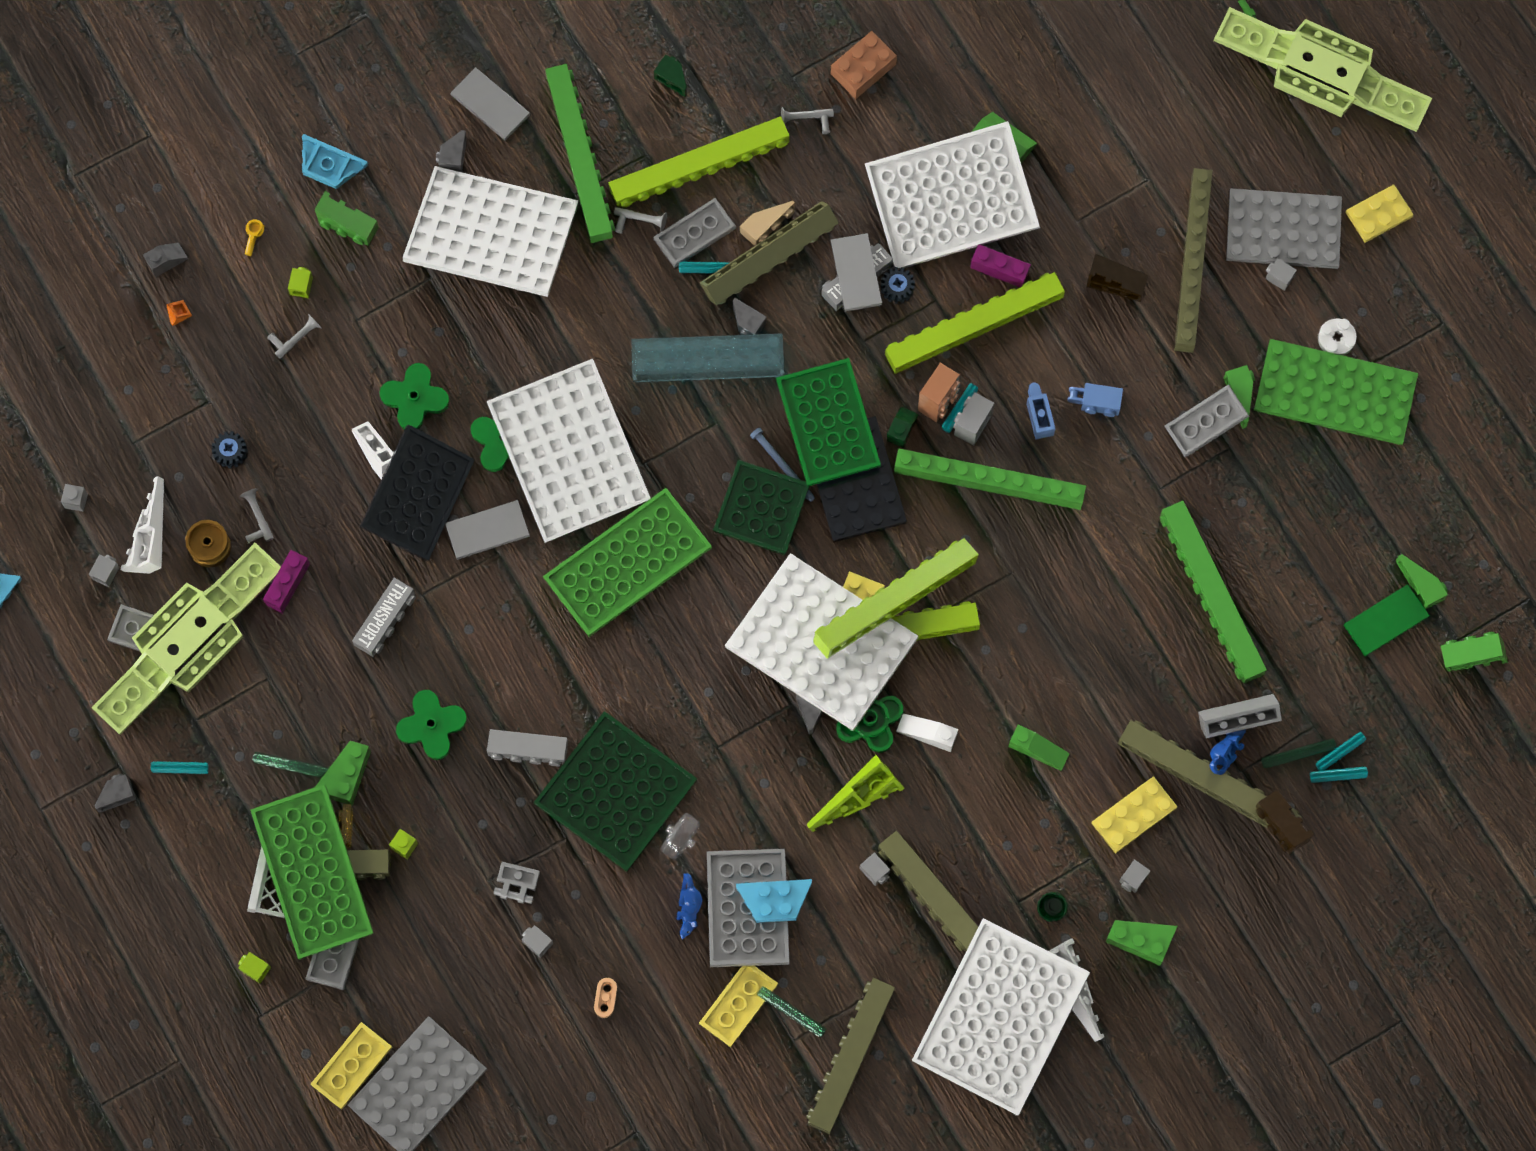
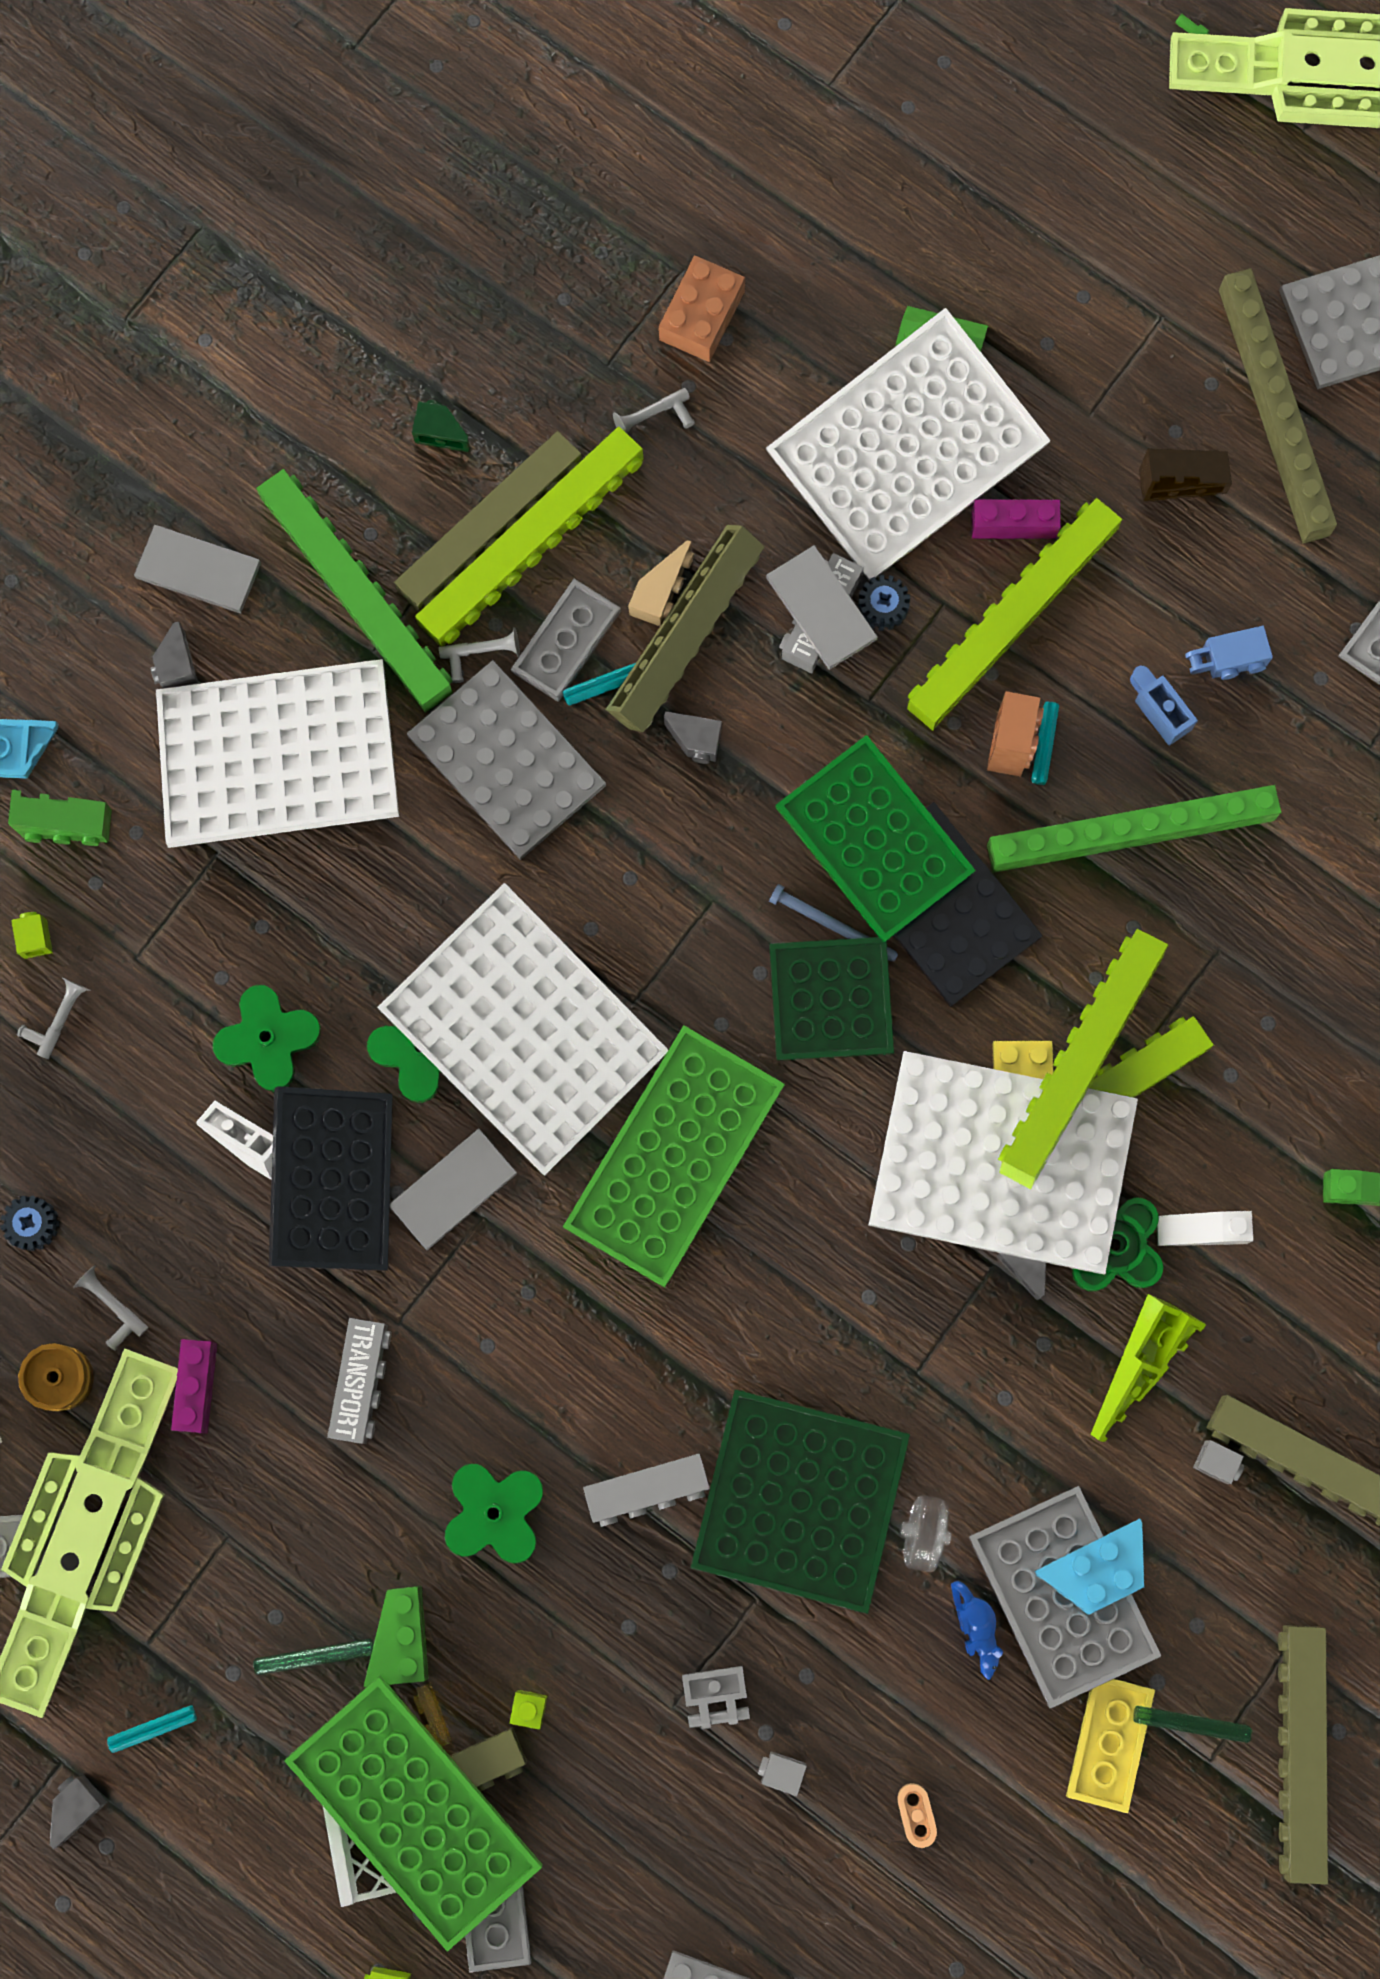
camera: 20 degrees left, 5 degrees up
(627, 289) = (506, 759): none -> light grey plate
(677, 142) = (487, 521): none -> olive brick
(707, 357) = (662, 812): clear light blue brick -> none
(901, 427) = (977, 802): dark green slope -> none
(973, 418) = (1076, 751): light grey brick -> none

